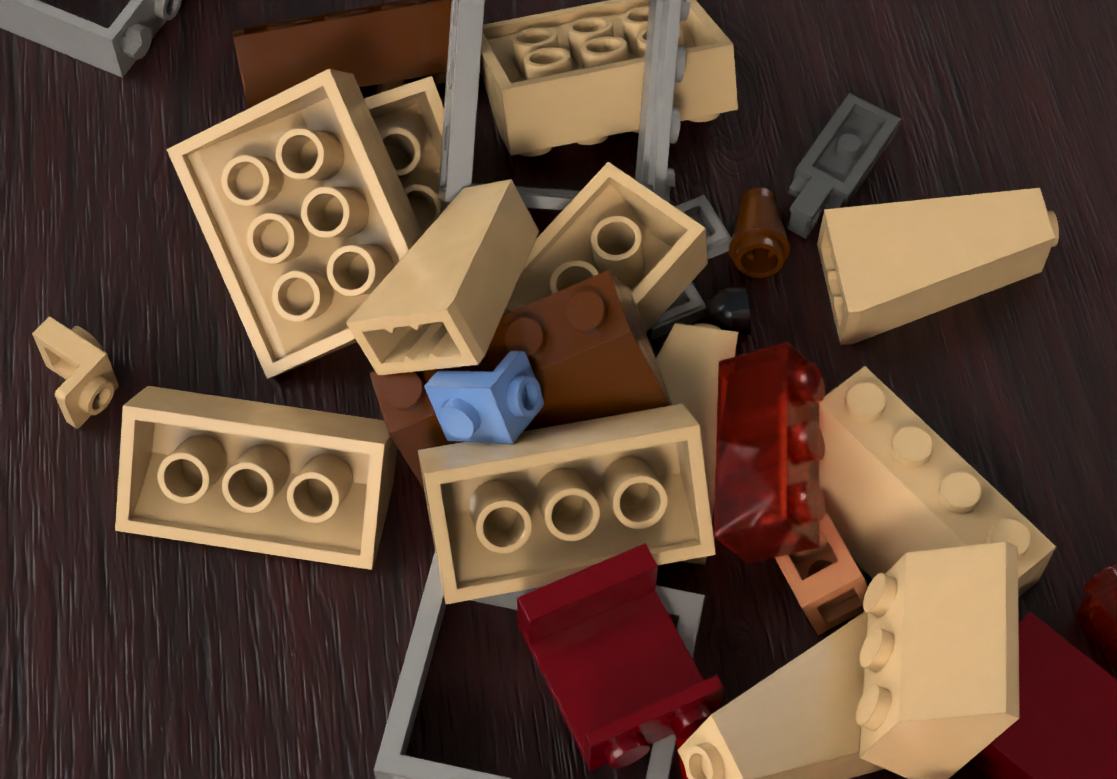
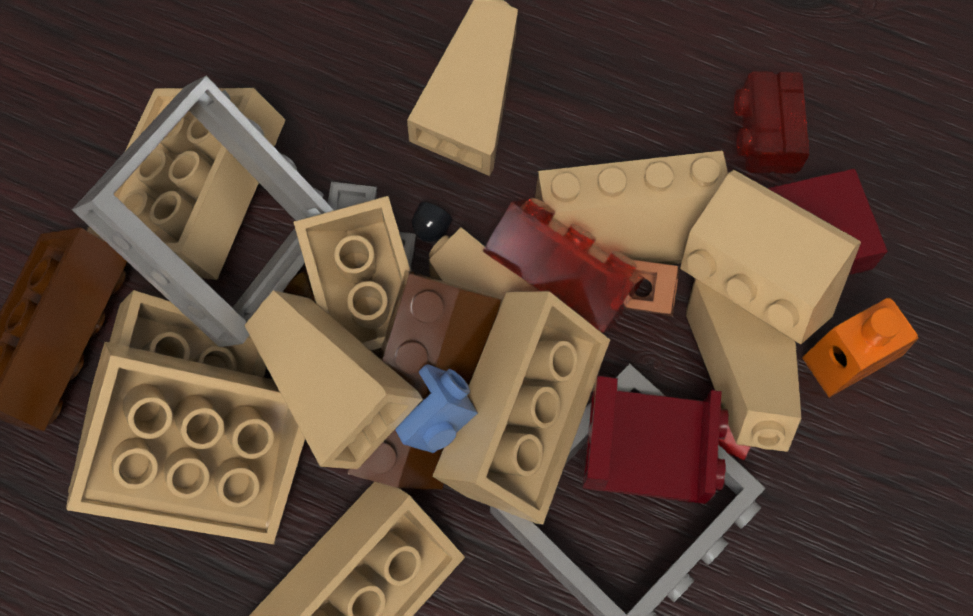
camera: 60 degrees left, 10 degrees up
(759, 235) = (385, 168): reddish brown cone -> none
(839, 161) = (366, 88): dark grey hinge -> none

